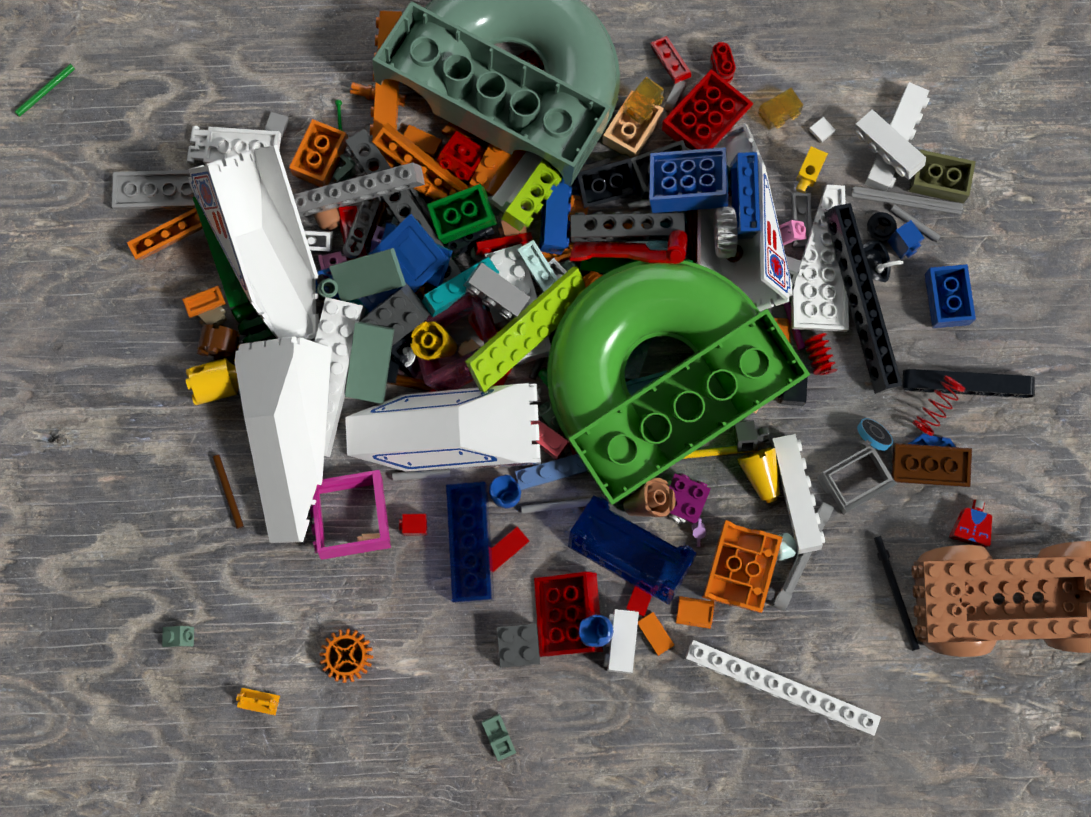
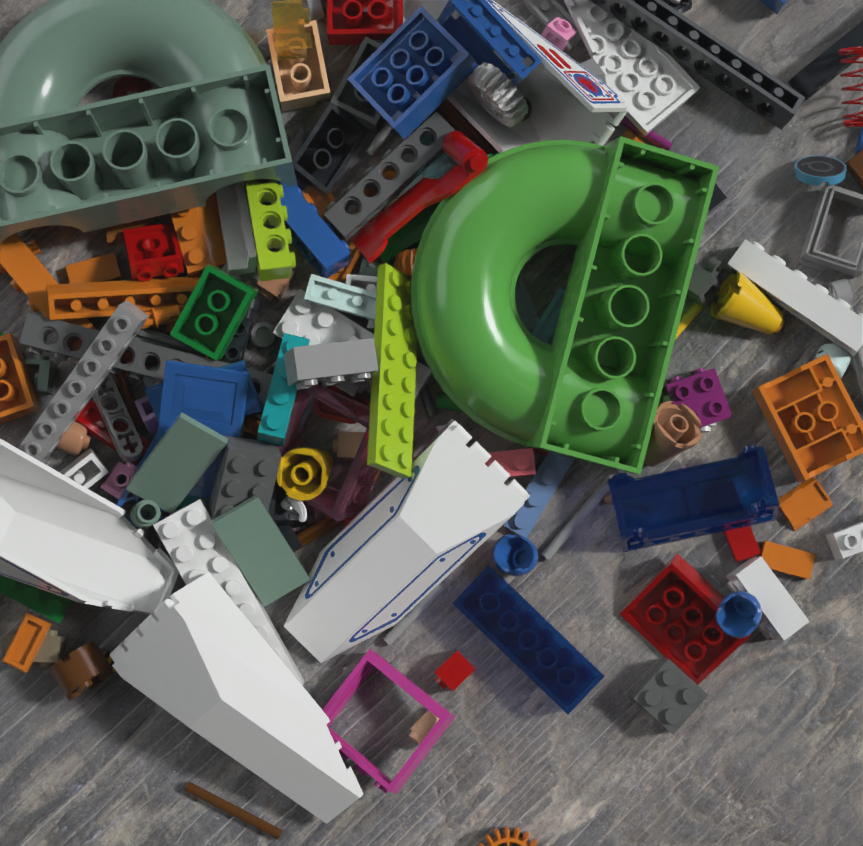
camera: 45 degrees left, 5 degrees up
(212, 381) = (113, 715): yellow cylinder -> none
(243, 311) = (76, 615): green cone -> none
(249, 326) = (96, 625): dark green brick -> none
(488, 246) = (280, 304): red plate -> none
(498, 737) = (729, 801): sand green slope -> none
(508, 547) = (566, 607): red tile -> none
(546, 413) = (487, 439): sand green bracket -> none
(698, 530) = (737, 421): lavender piece -> none
(819, 355) = (695, 137): red piece -> none

